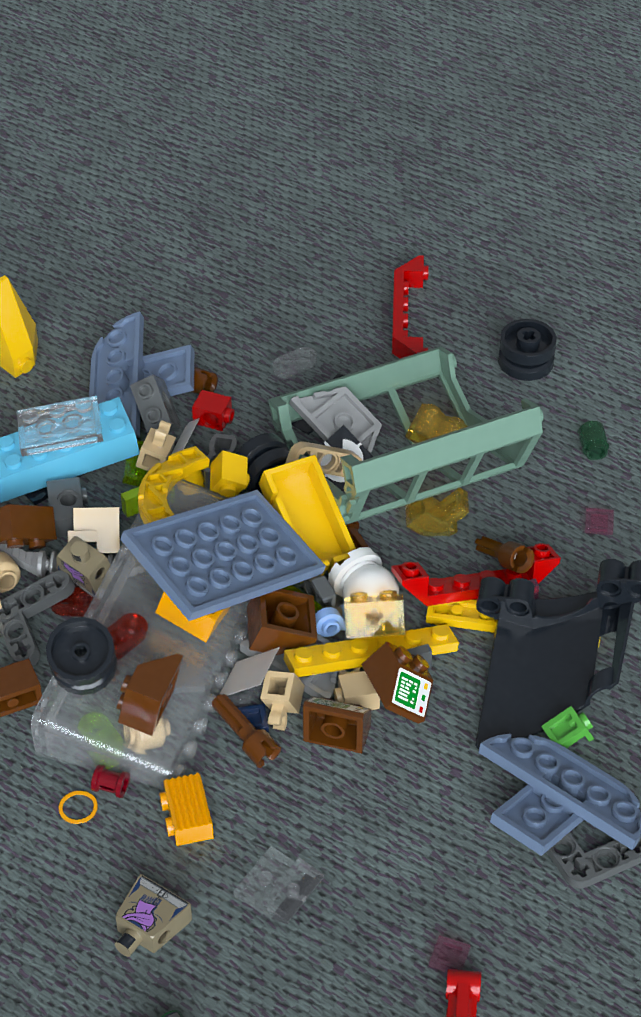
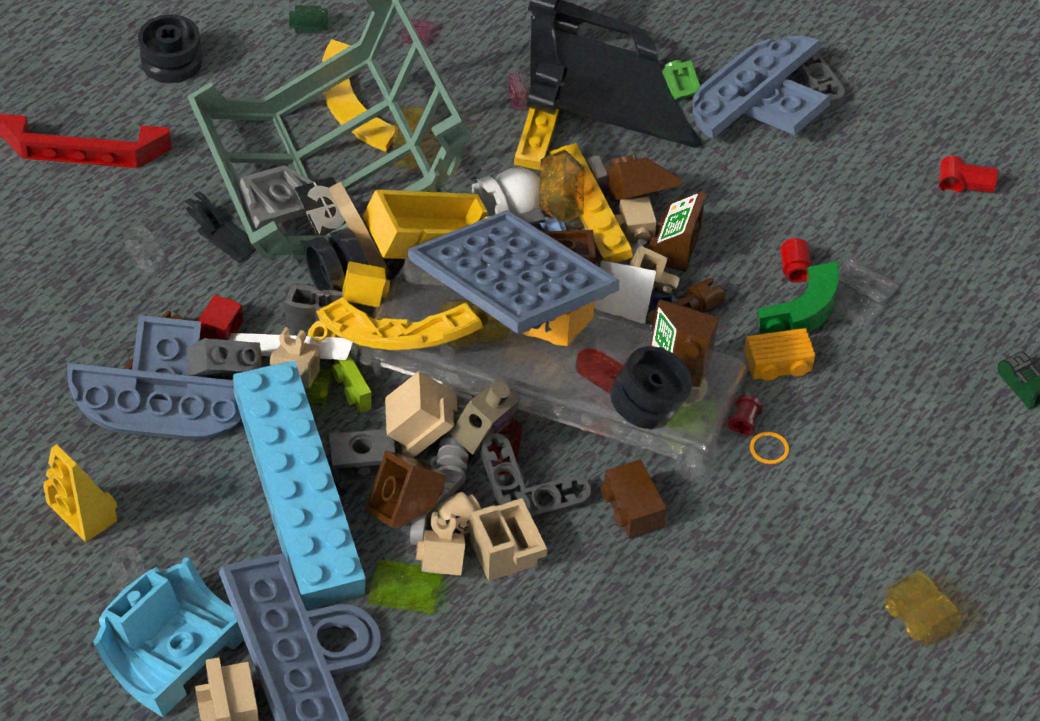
camera: 90 degrees left, 5 degrees up
(59, 426) = (279, 427): clear plate -> none
(150, 917) = (902, 384): dark tan torso -> none
(248, 836) = (809, 309): none -> green arch
(317, 827) = (795, 259): none -> red brick
(432, 423) = (288, 129): clear yellow brick -> none
(449, 954) = (919, 184): clear pink tile -> none
(466, 587) = (500, 109): red slope -> none
(509, 554) = (485, 81): reddish brown piece -> none
(537, 467) = (346, 106): none -> yellow tile

